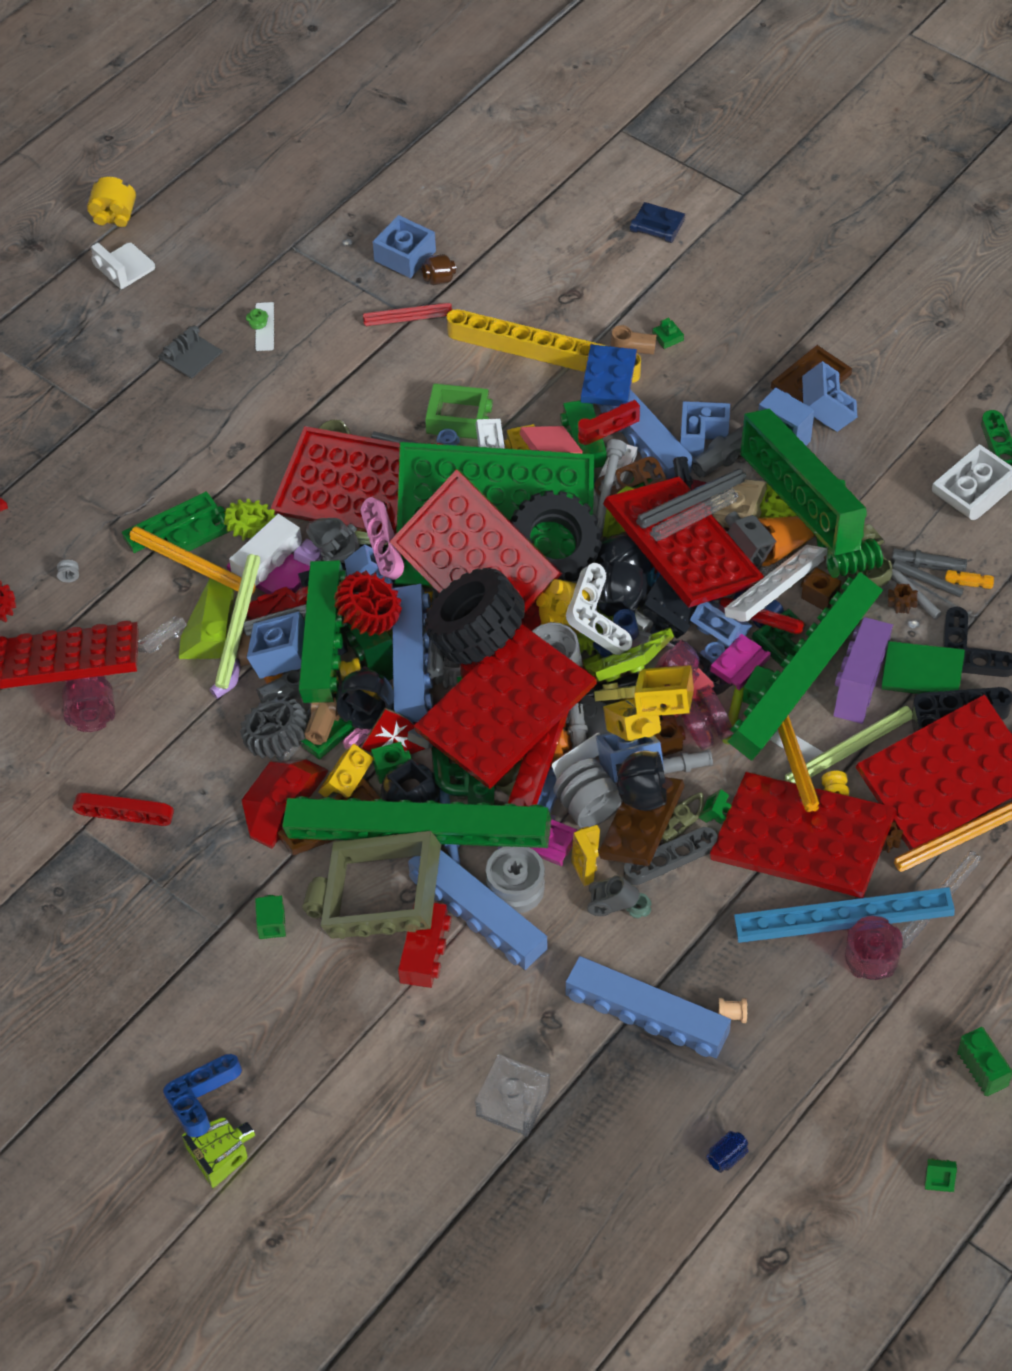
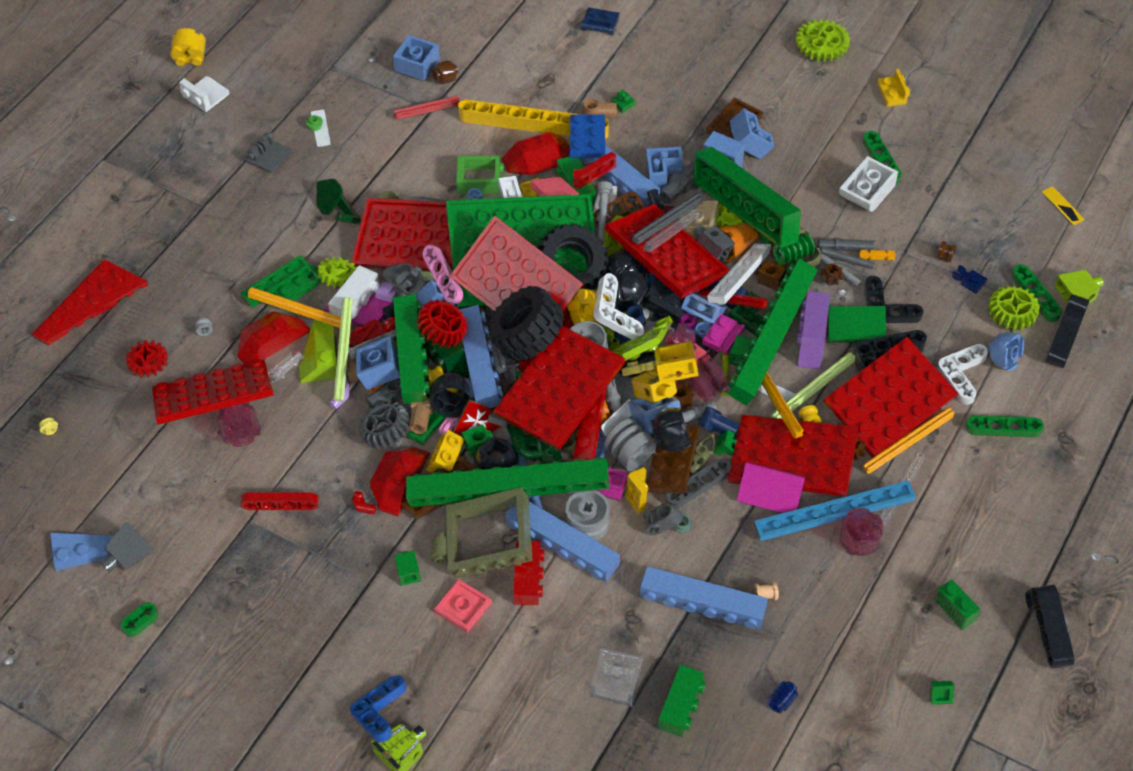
camera: 10 degrees left, 0 degrees up
(150, 592) = (269, 336): none -> red wedge
(226, 828) = (360, 504): none -> red arm
(259, 416) = (329, 195): none -> dark green piece
(333, 975) = (462, 605): none -> coral tile
(538, 392) = (536, 154): none -> red wedge
(593, 1138) = (682, 701): none -> green brick
(697, 634) = (688, 318): none -> magenta plate
(705, 775) = (715, 421): none -> dark blue piece
(763, 874) = (770, 488): none -> dark pink tile
(952, 279) = (822, 40): none -> lime gear

